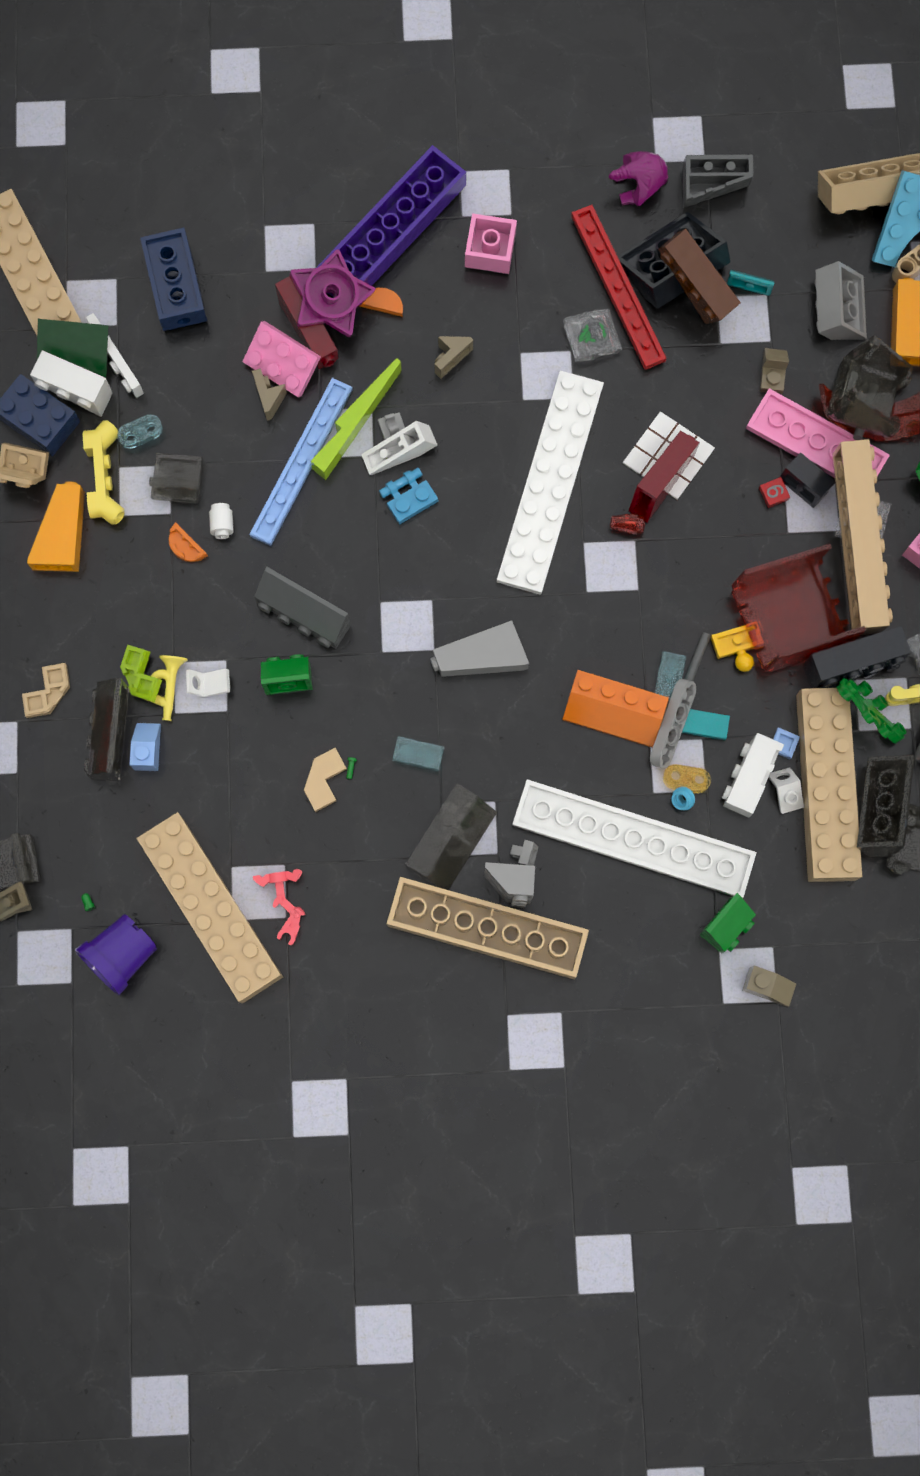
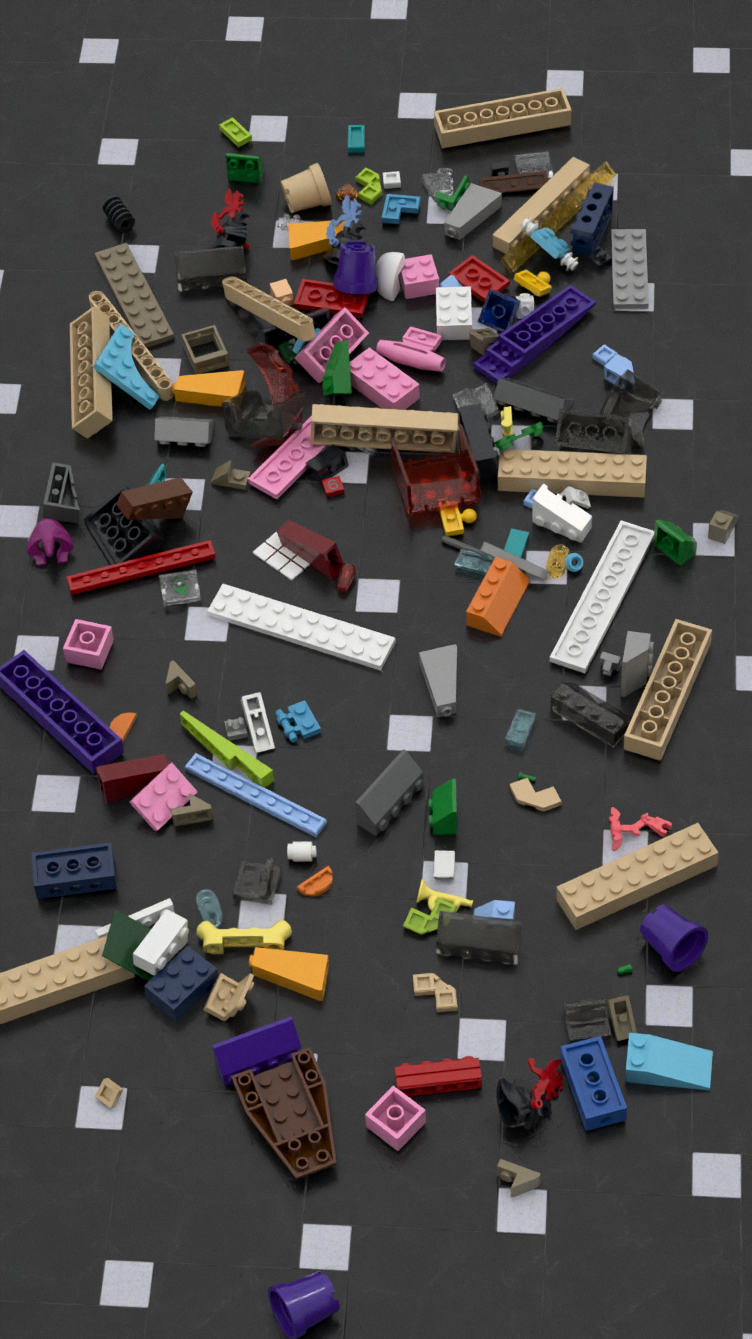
camera: 80 degrees left, 25 degrees down
(335, 279) = (119, 745): magenta plate -> none

